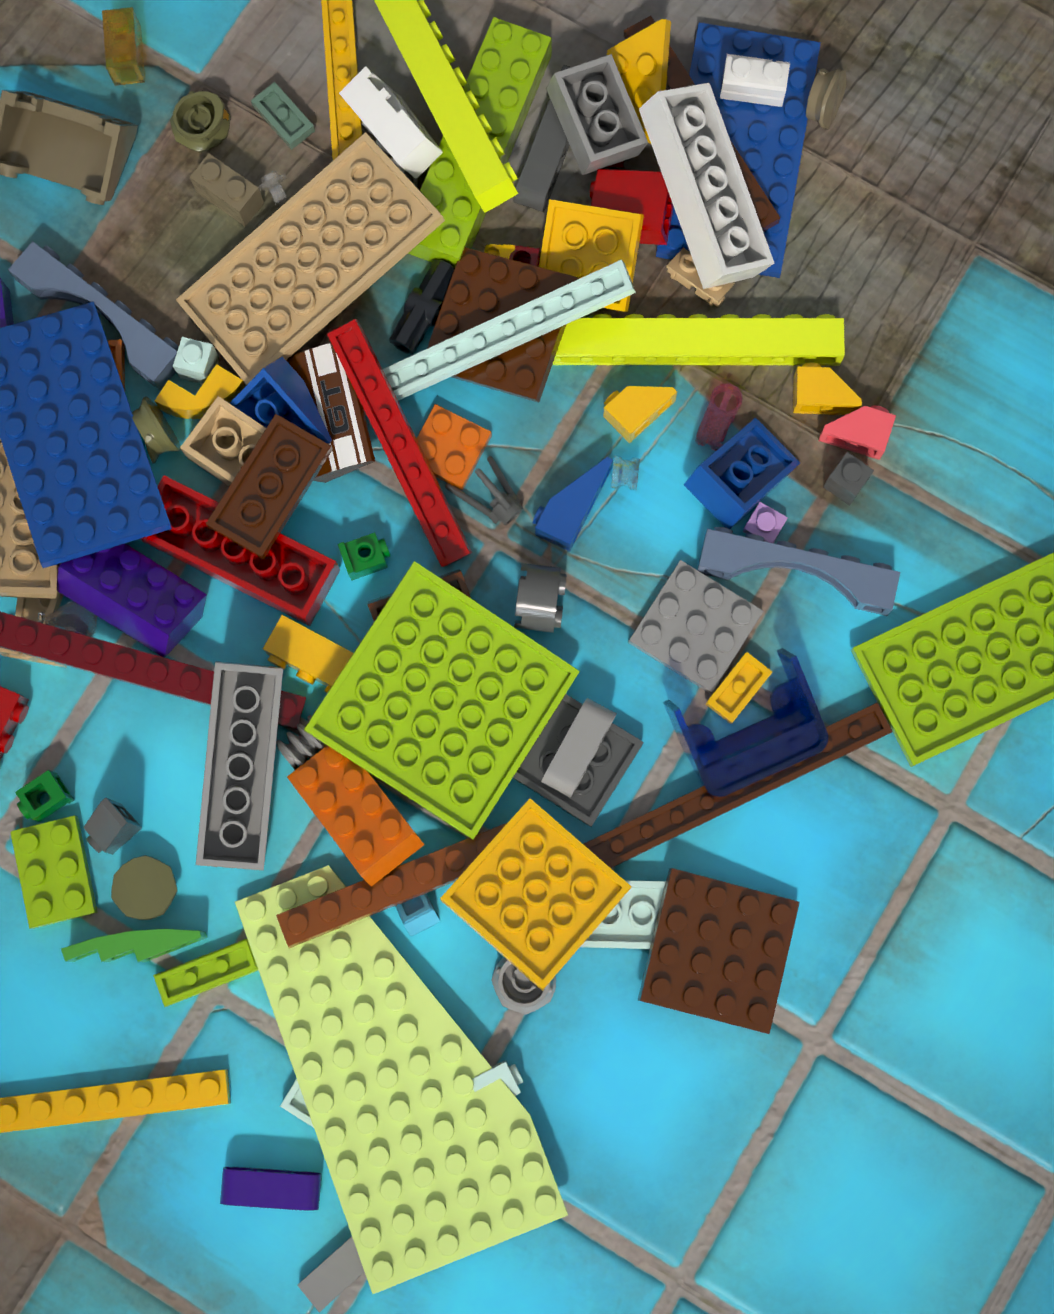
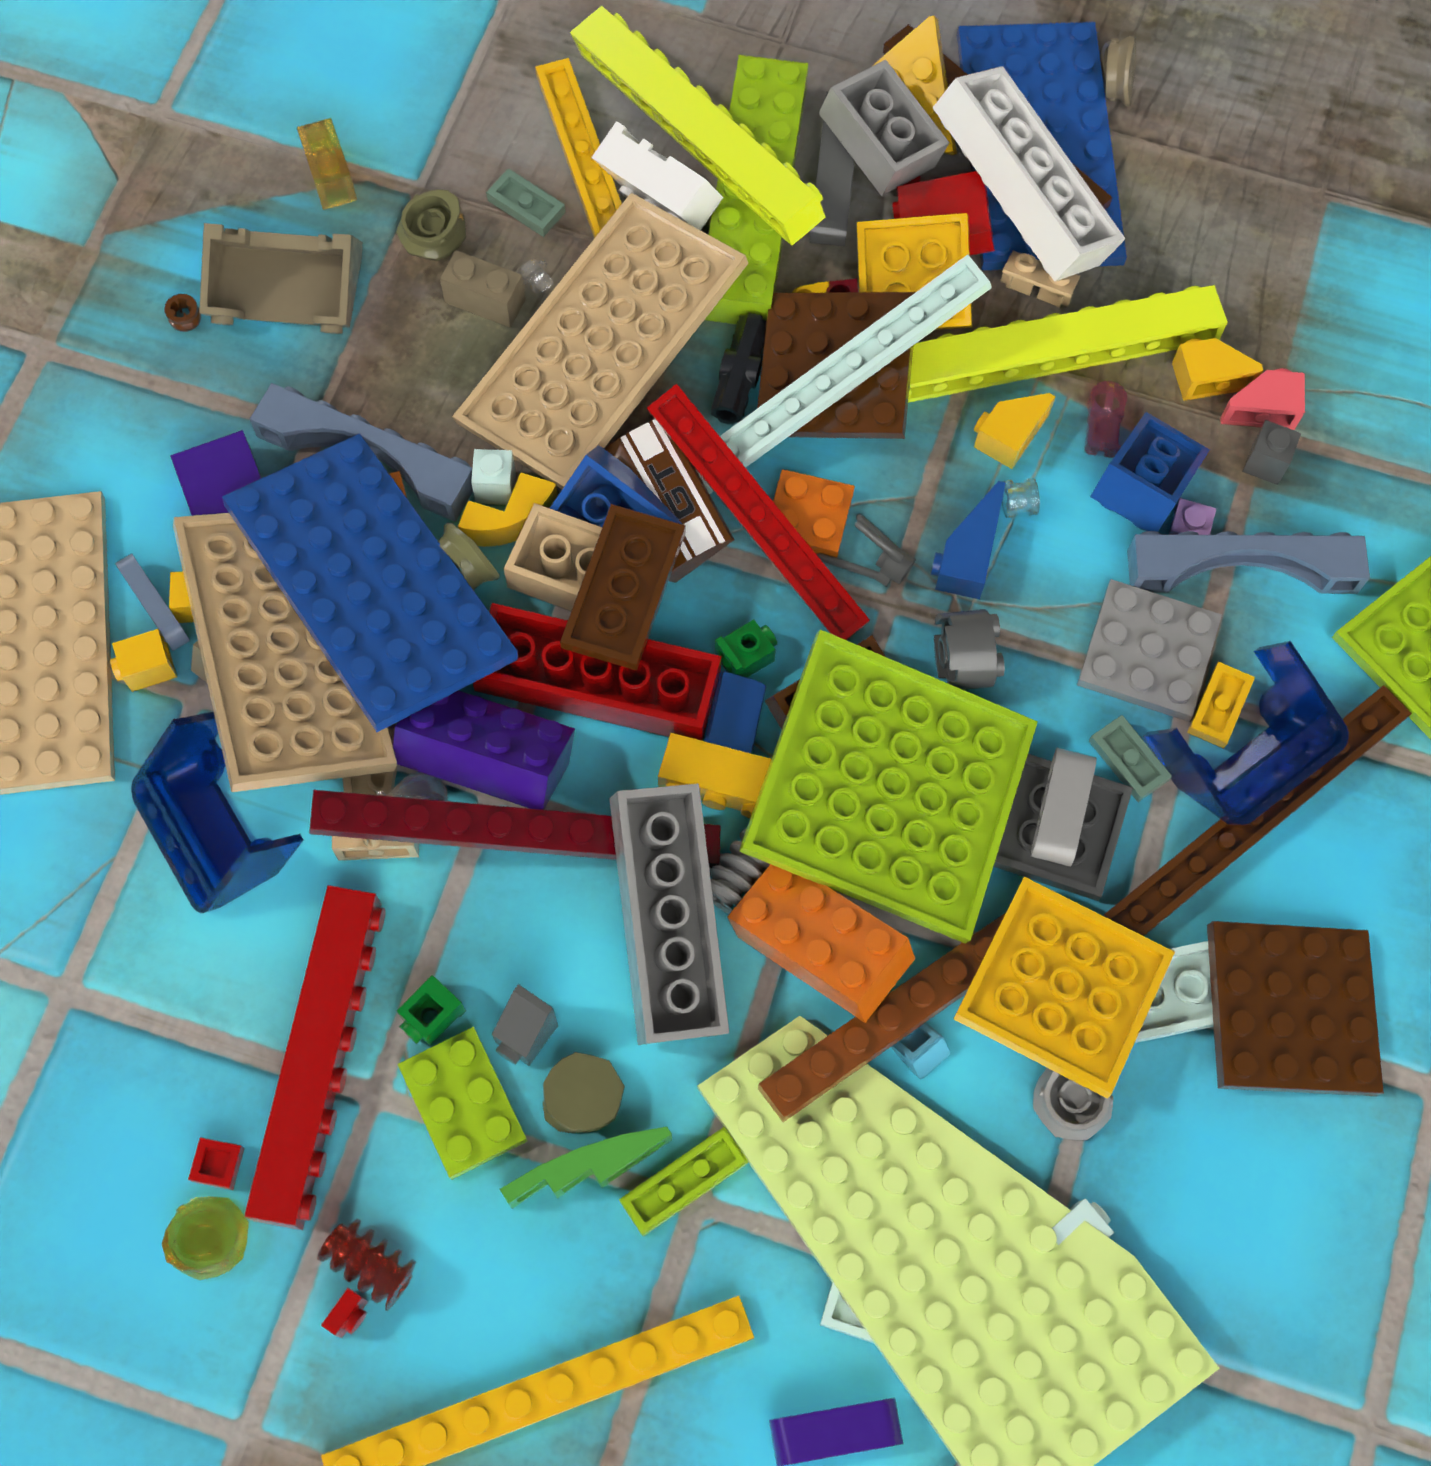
camera: 20 degrees left, 10 degrees down
(340, 608) = (735, 712): none -> blue slope
(650, 716) = (1130, 758): none -> sand green plate
(754, 80) = (1044, 64): white brick -> none

